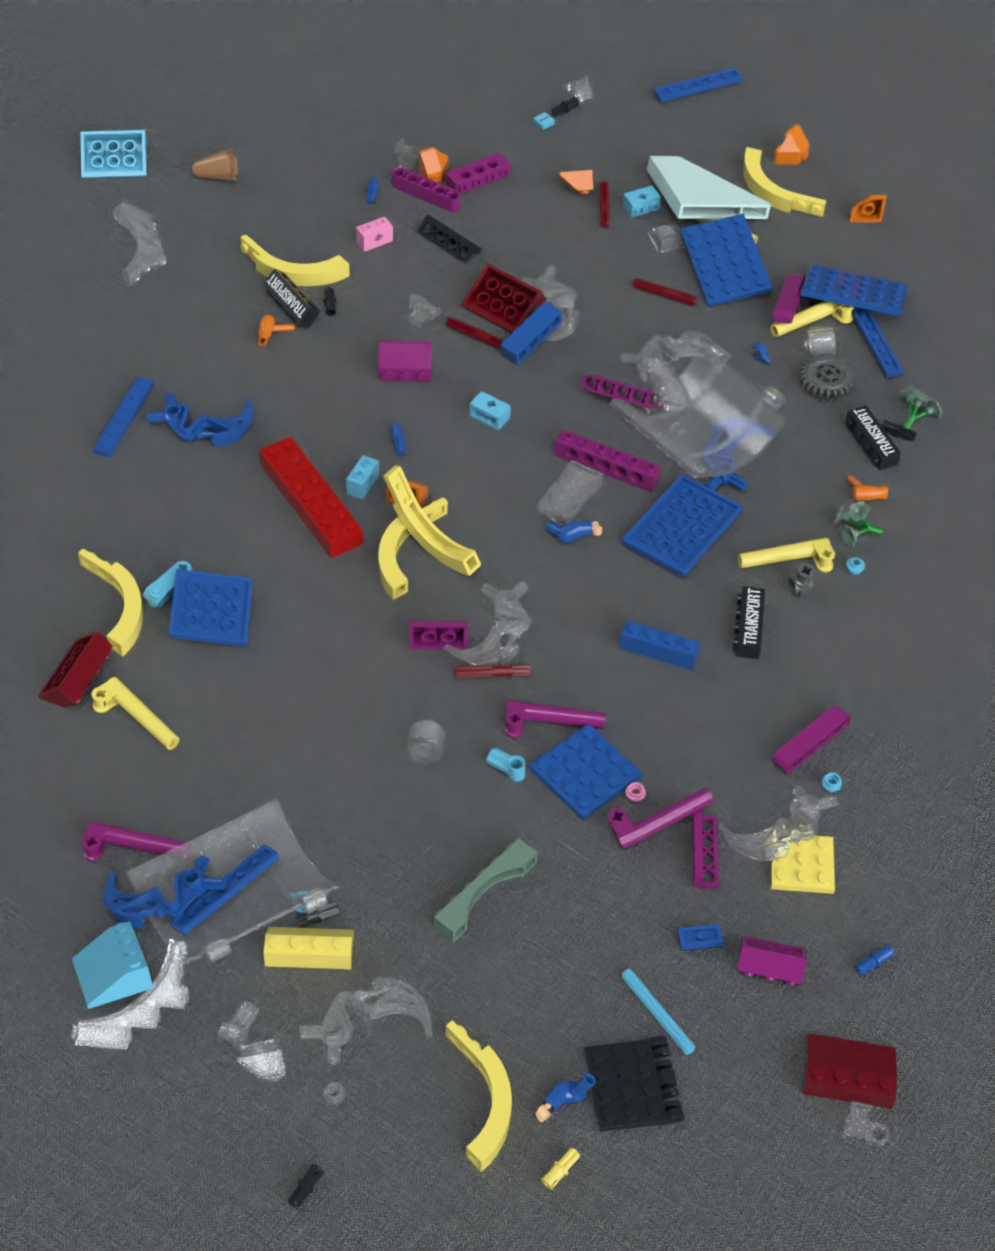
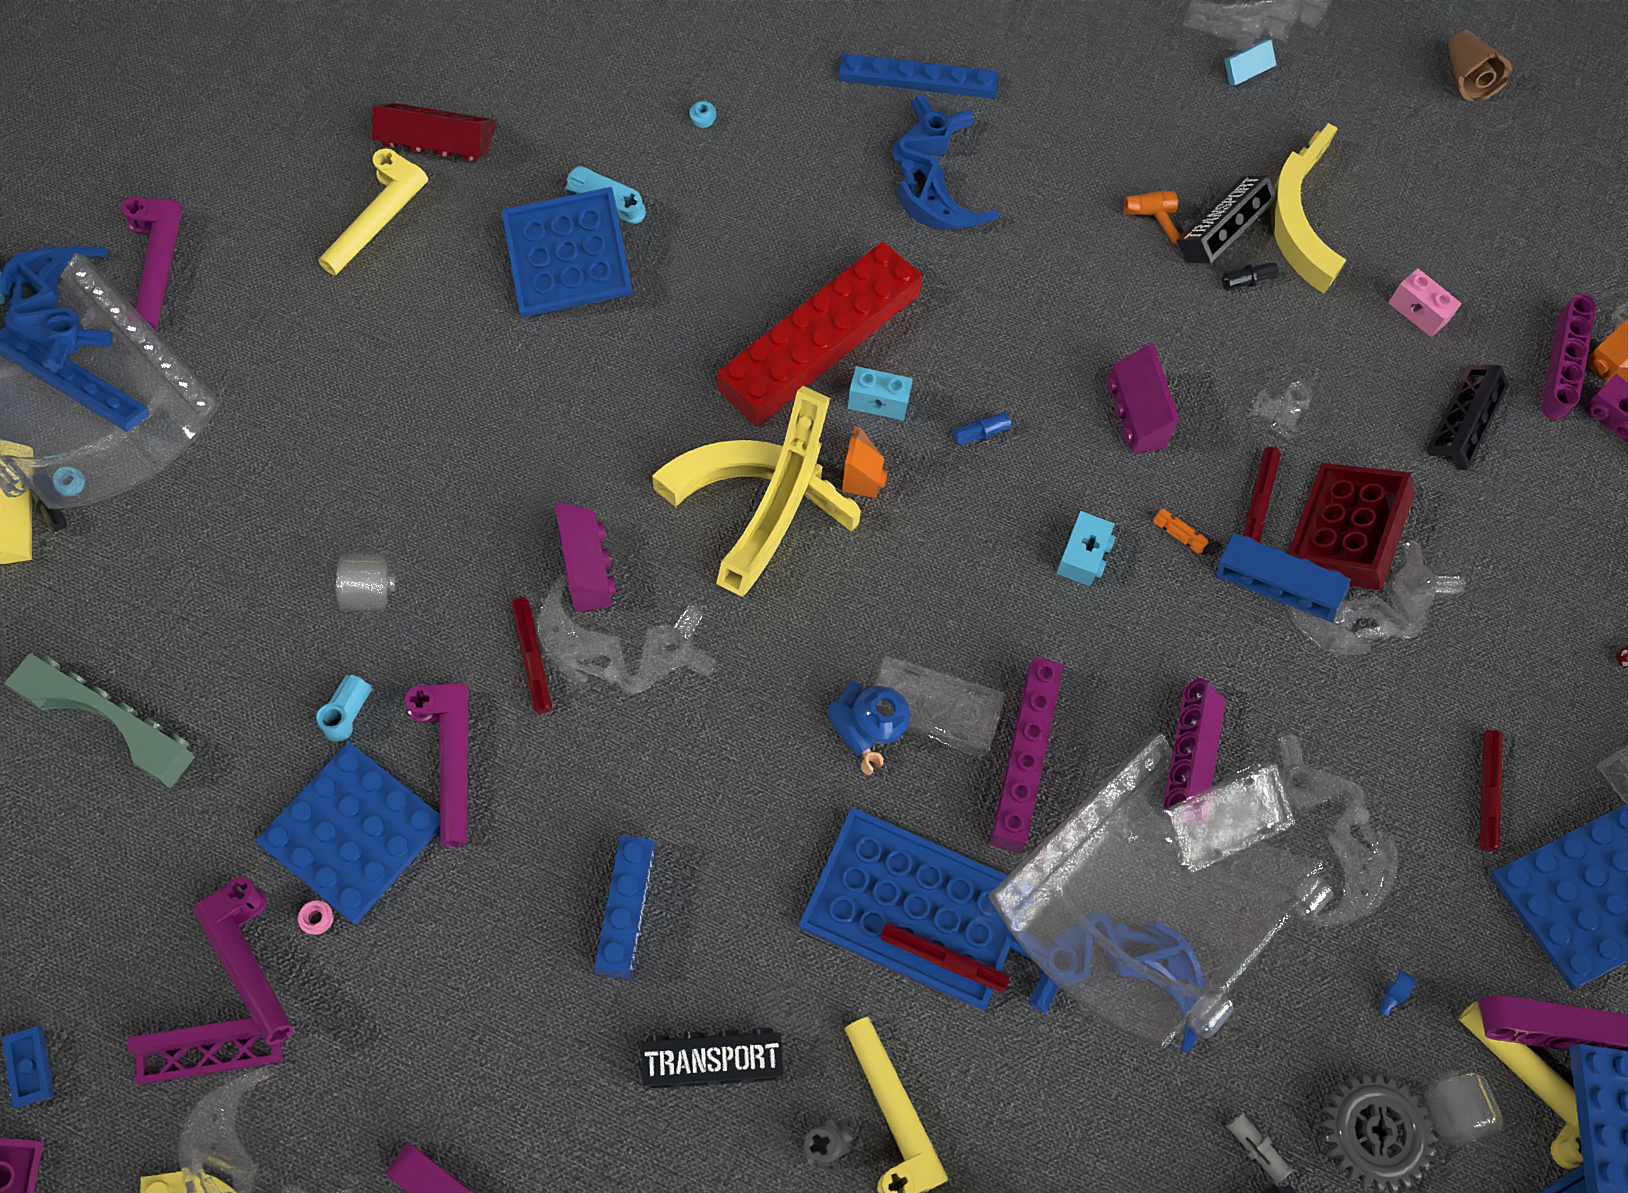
camera: 75 degrees right, 15 degrees up
(115, 528) = (702, 114): none -> medium azure plate
(130, 623) = (552, 166): light yellow arch -> none
(176, 261) = (1250, 62): none -> medium azure tile
(372, 189) = (1529, 281): blue axle -> none
(487, 370) = (1181, 530): none -> orange axle
(574, 513) = (874, 725): none -> blue piece
(714, 514) = (944, 957): none -> dark red axle
(835, 419) = (1259, 1148): none -> light grey pin

